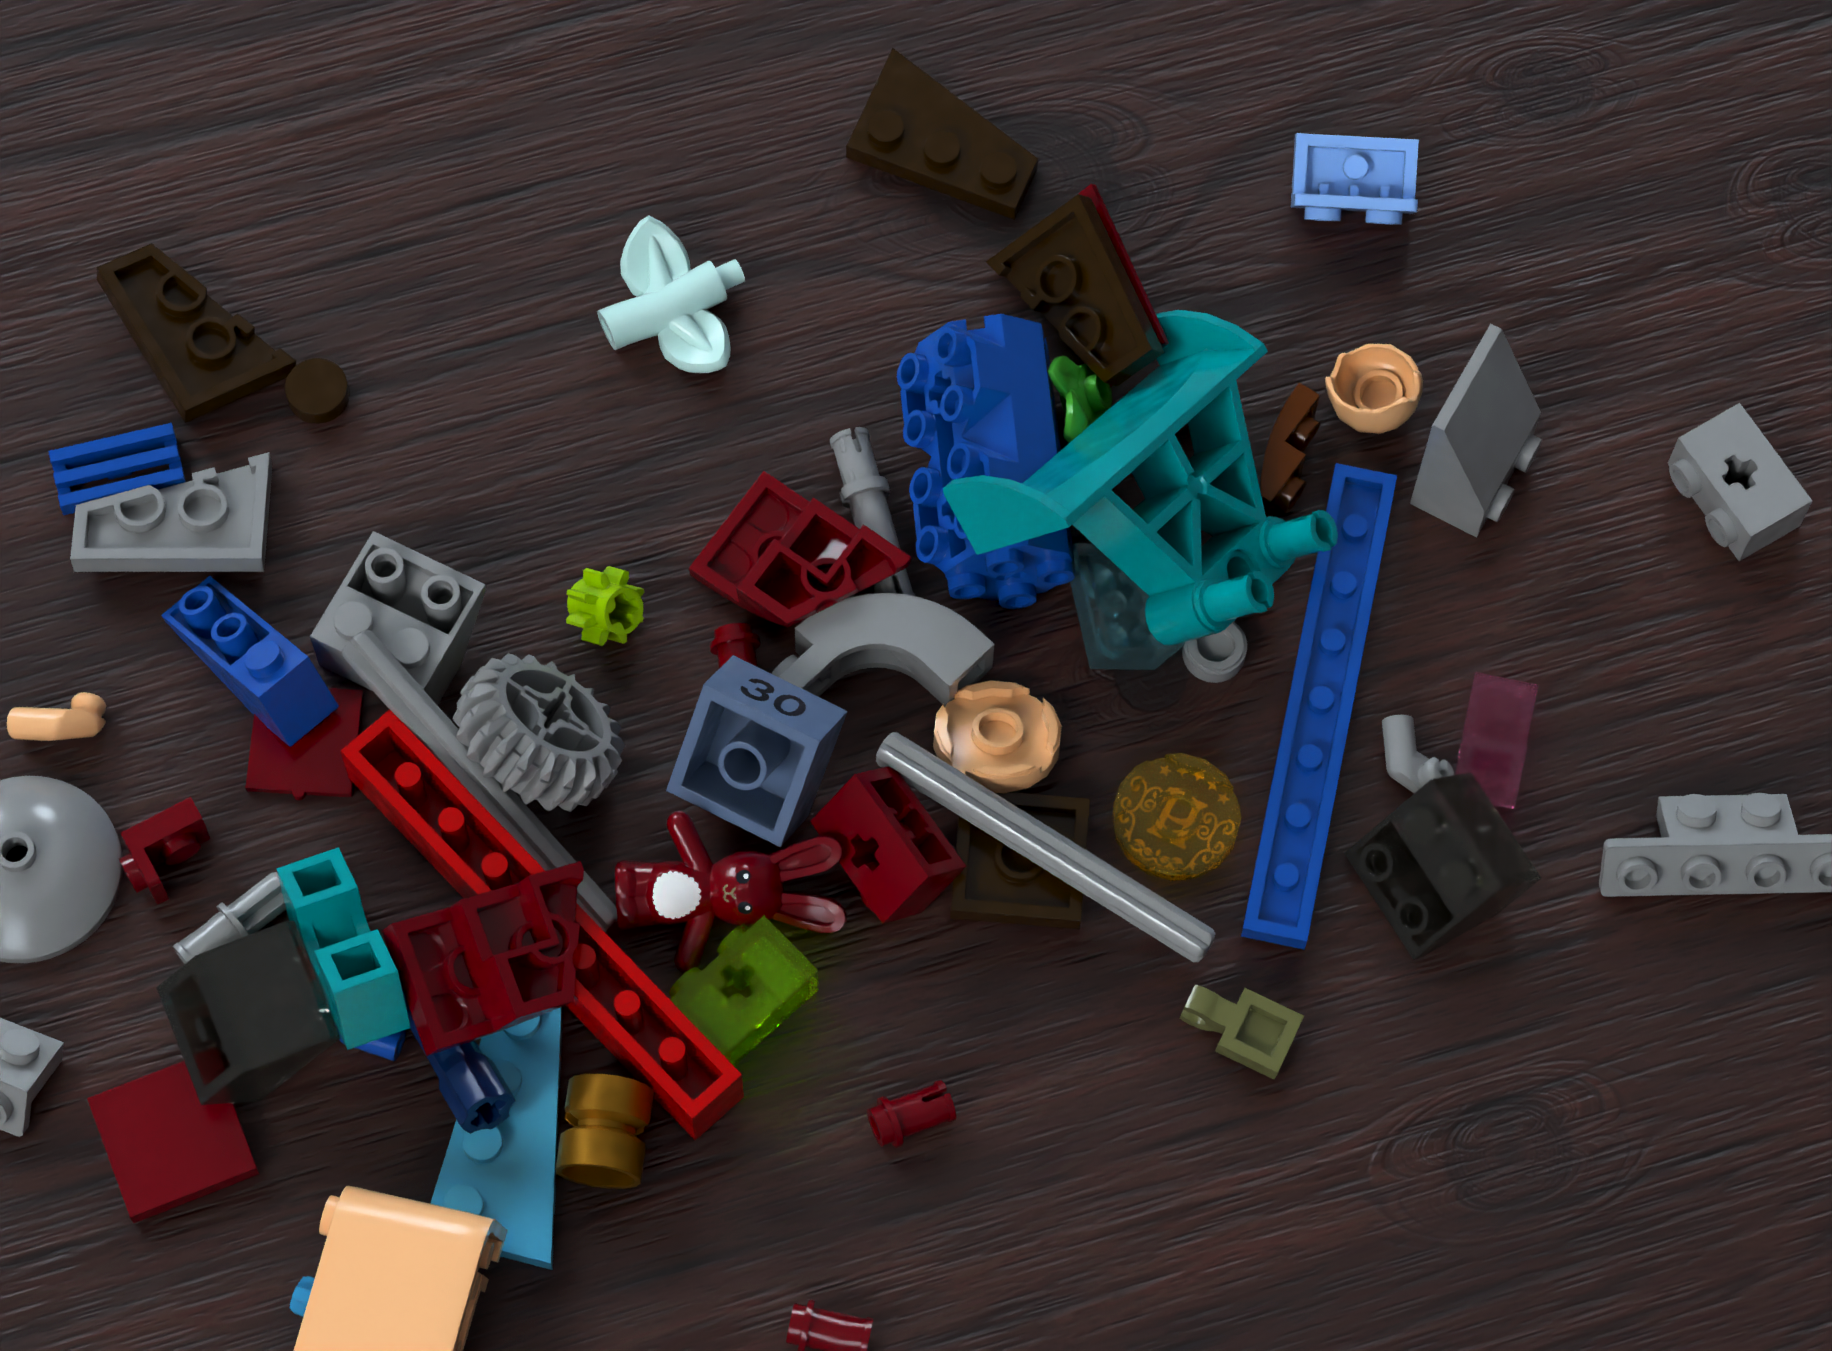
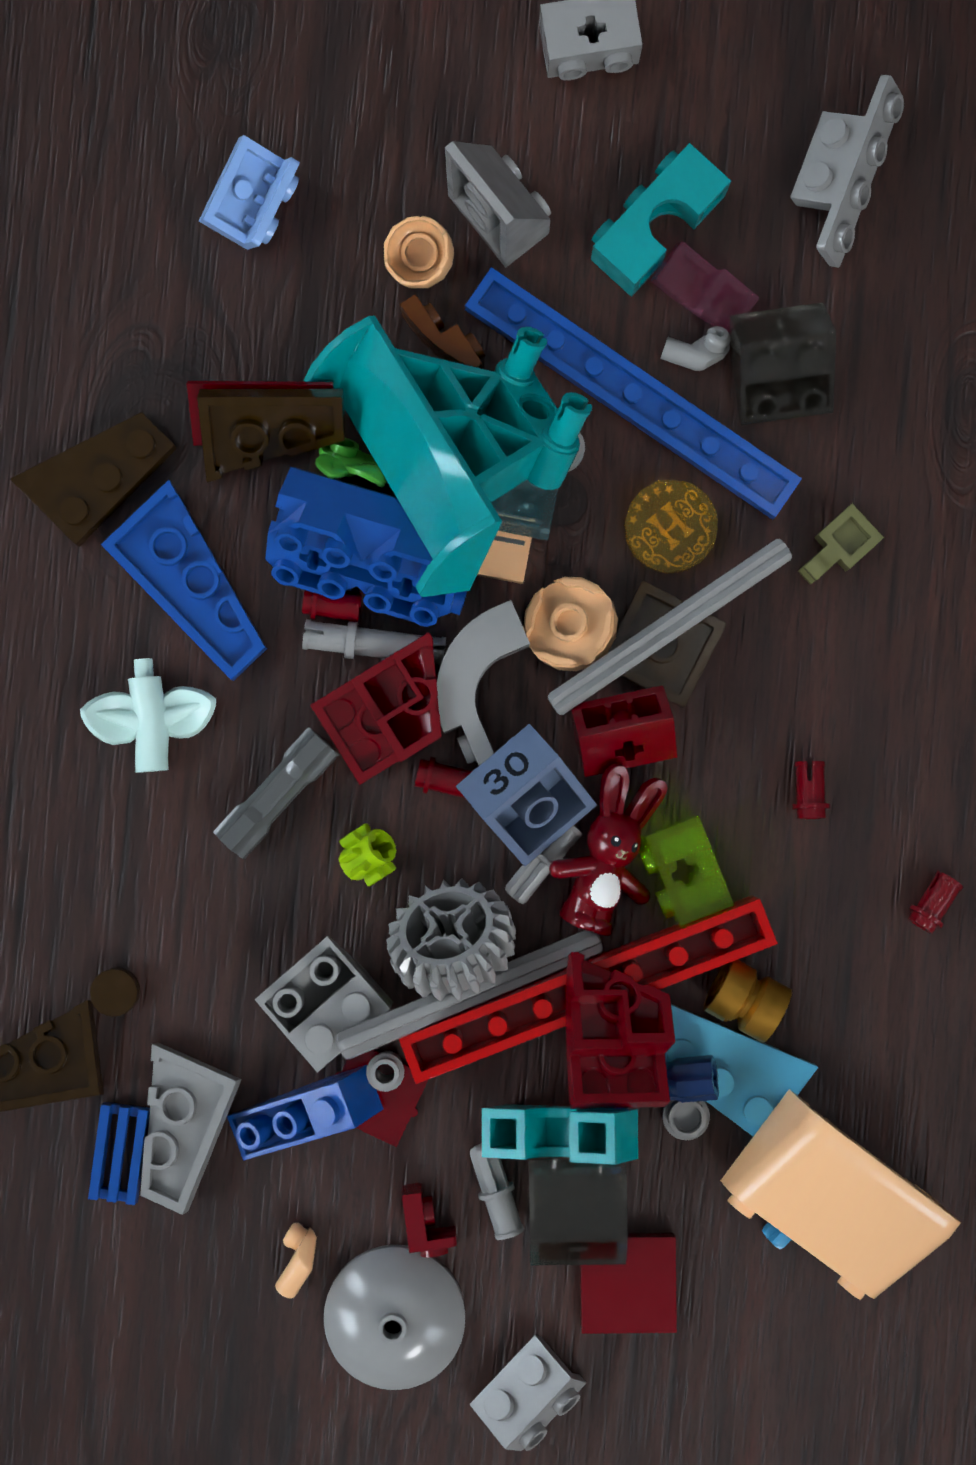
camera: 60 degrees left, 20 degrees up
(350, 714) = (385, 1082): none -> light grey pin
(421, 1123) = (686, 1119): none -> light grey plate
(596, 462) = (253, 818): none -> dark grey axle
(653, 807) = (530, 877): none -> light grey axle
(860, 275) = (178, 570): none -> blue wing
(897, 456) = (343, 608): none -> dark red pin
(1048, 632) = (507, 558): none -> light nougat tile
(1603, 654) = (685, 188): none -> teal arch

